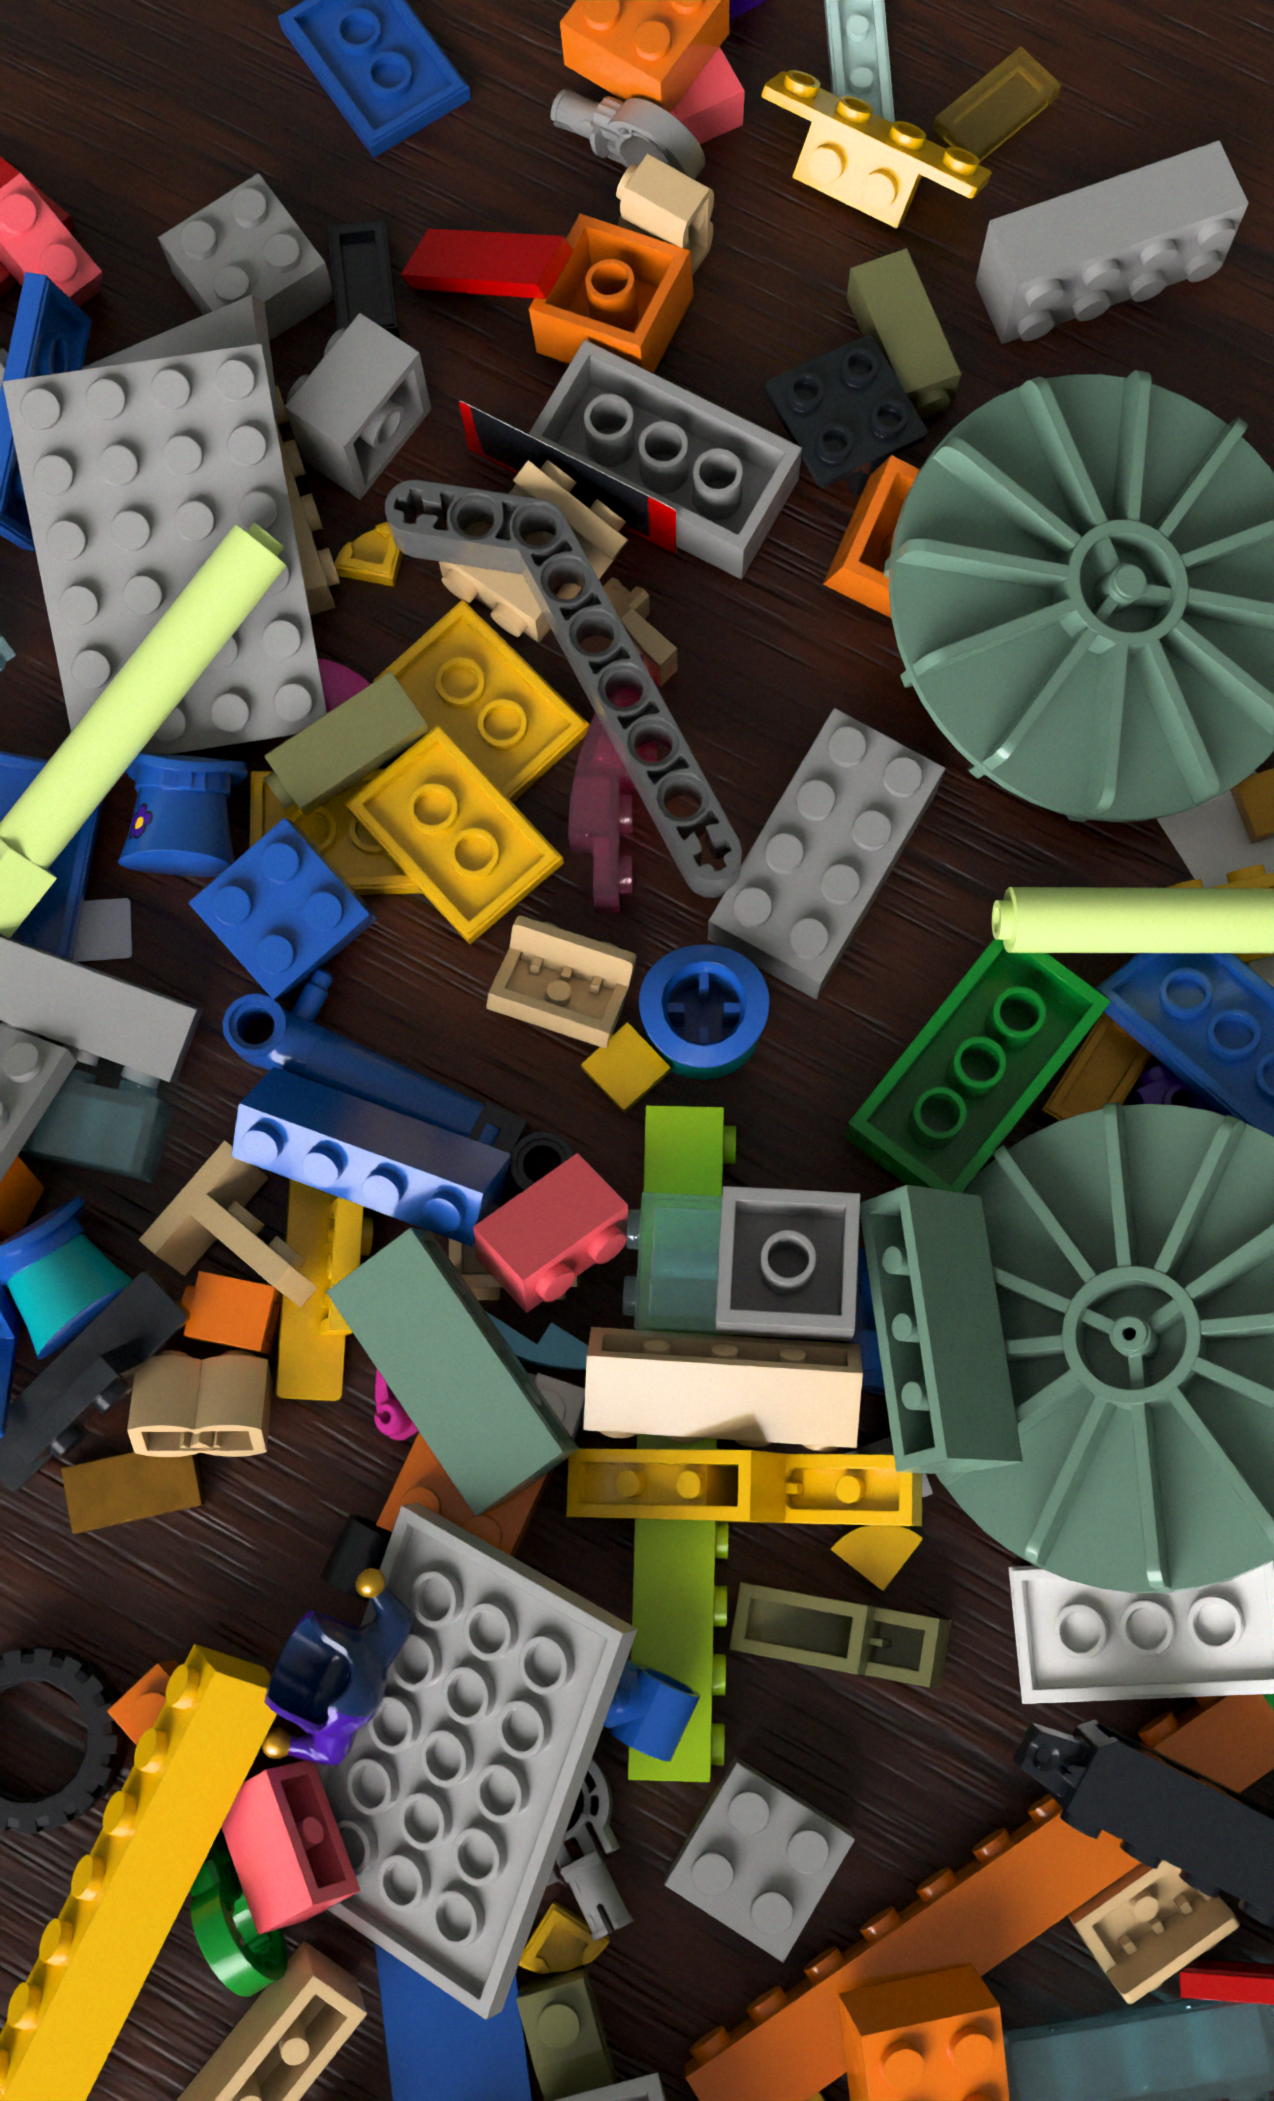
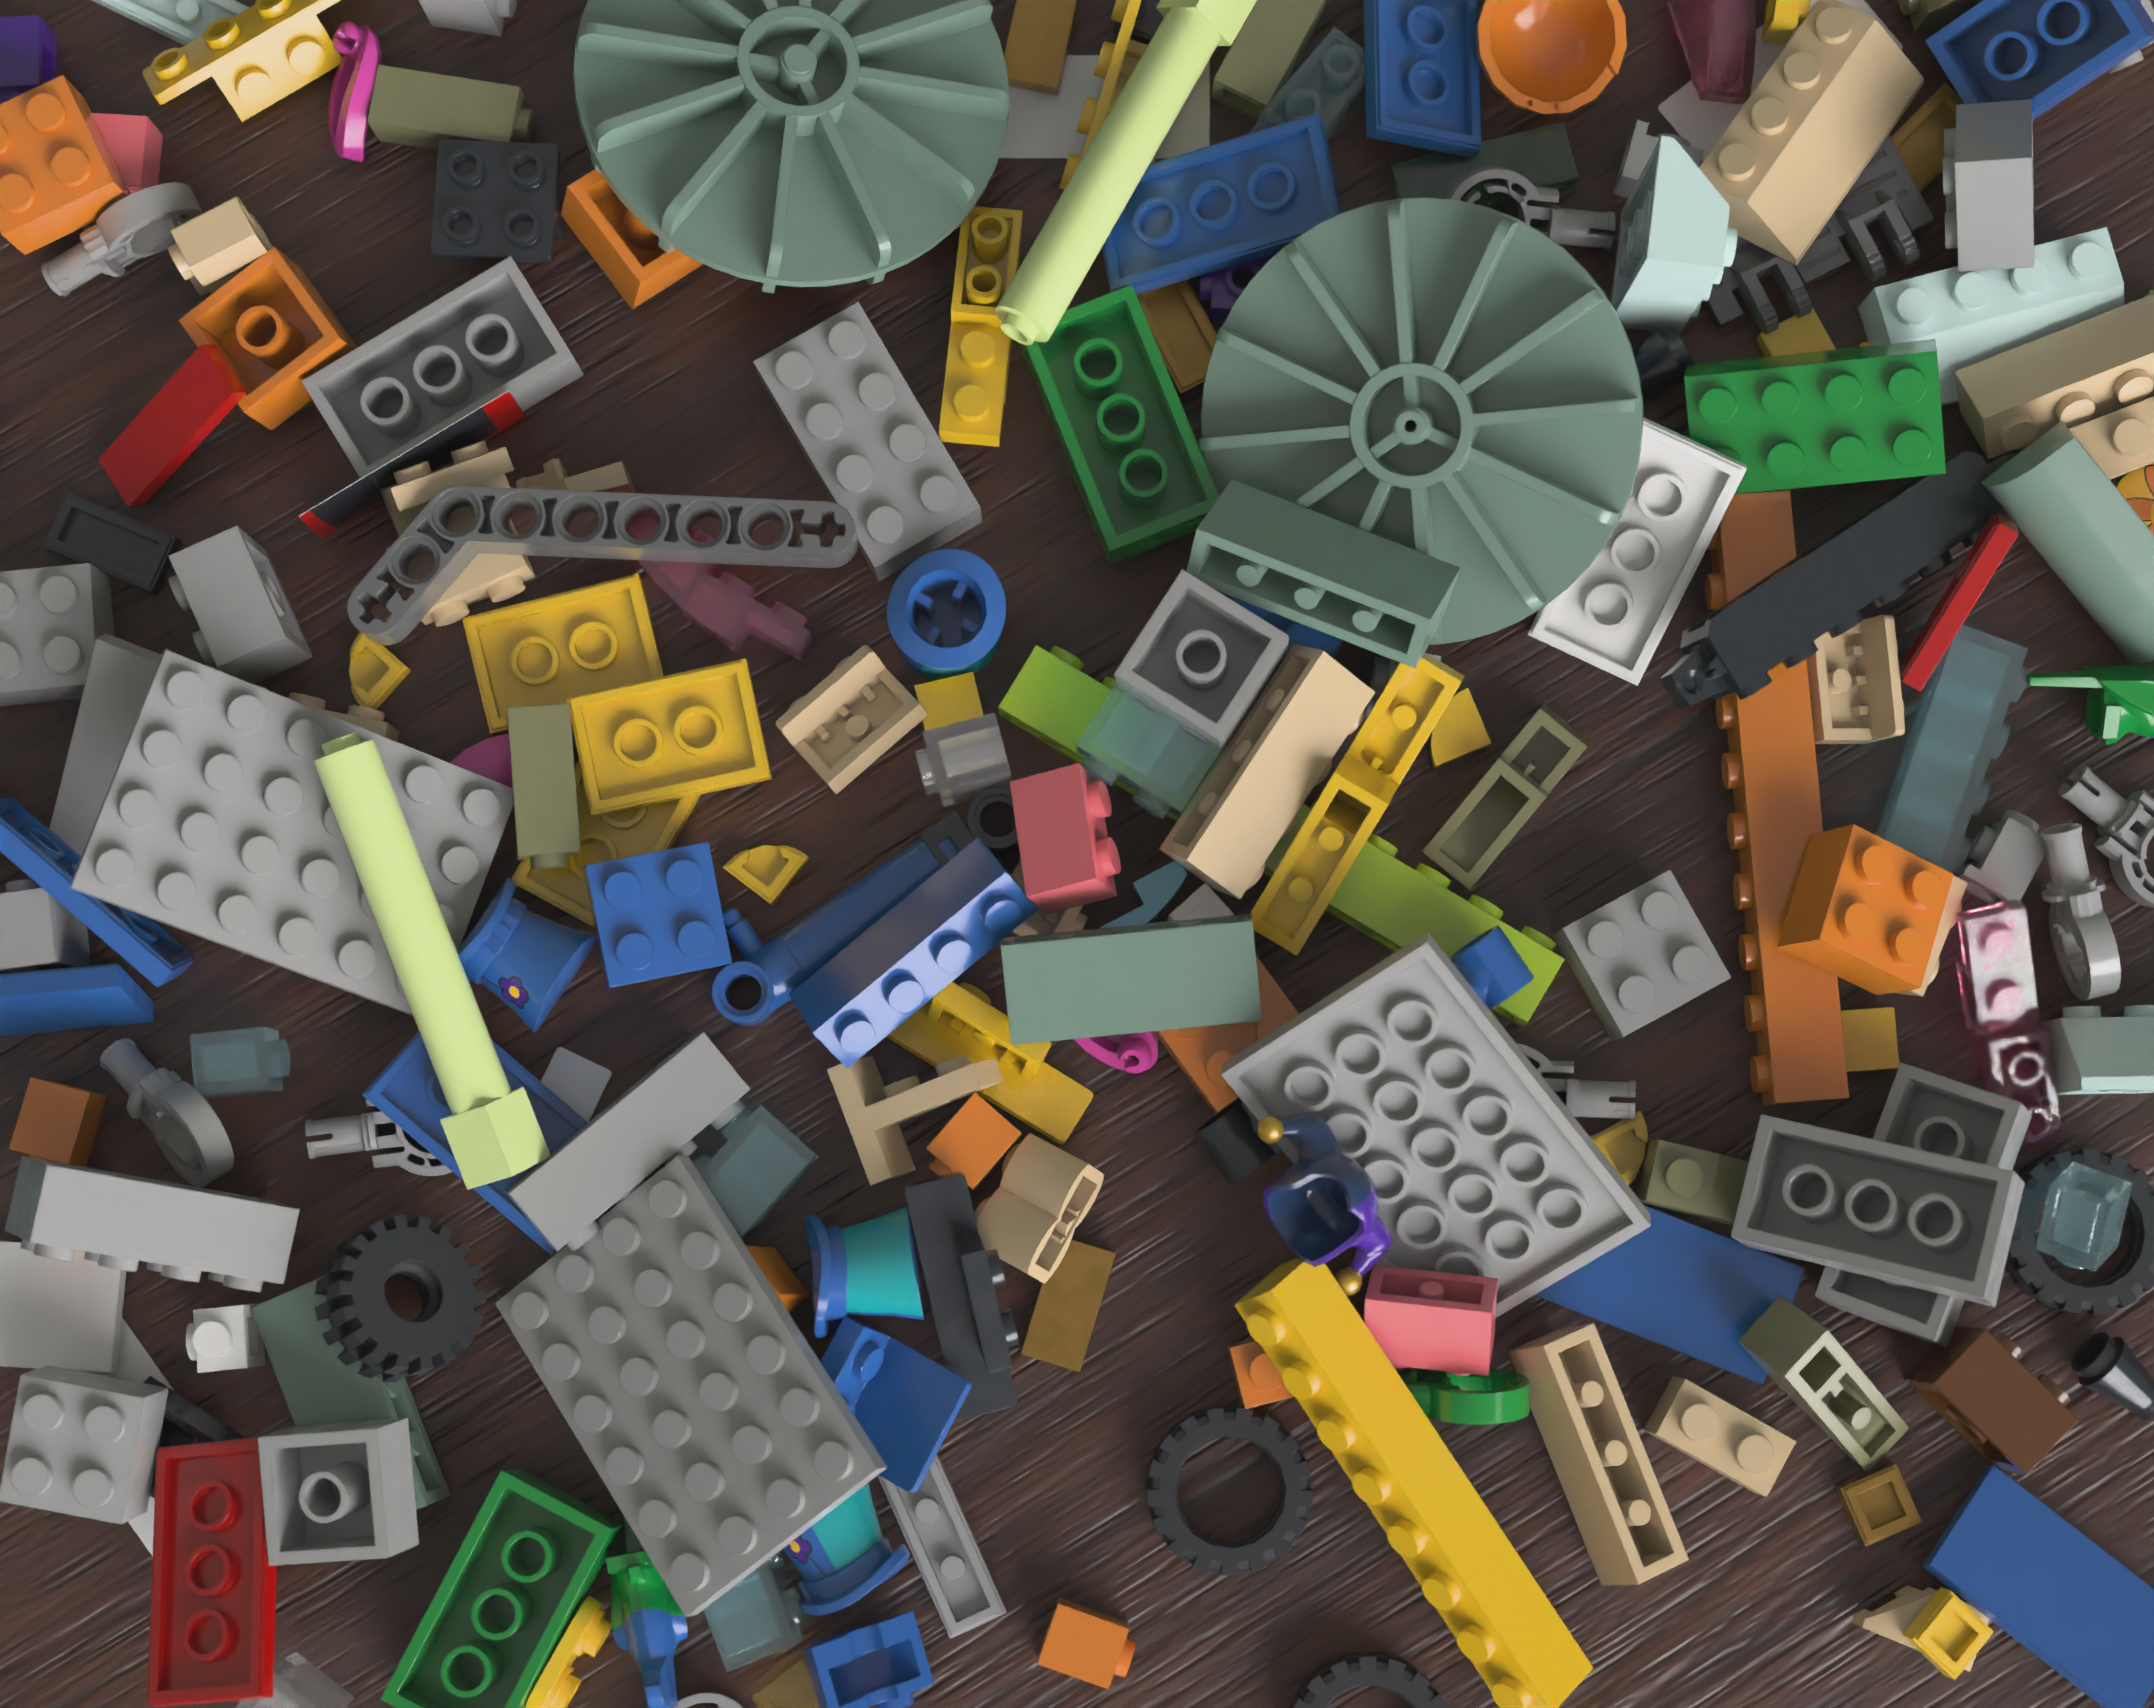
camera: 65 degrees left, 5 degrees up
(386, 988) = (767, 869): none -> yellow tile
(578, 1102) = (964, 760): none -> clear brick
(913, 234) = (353, 88): none -> dark pink arm
(960, 907) = (977, 346): none -> yellow slope

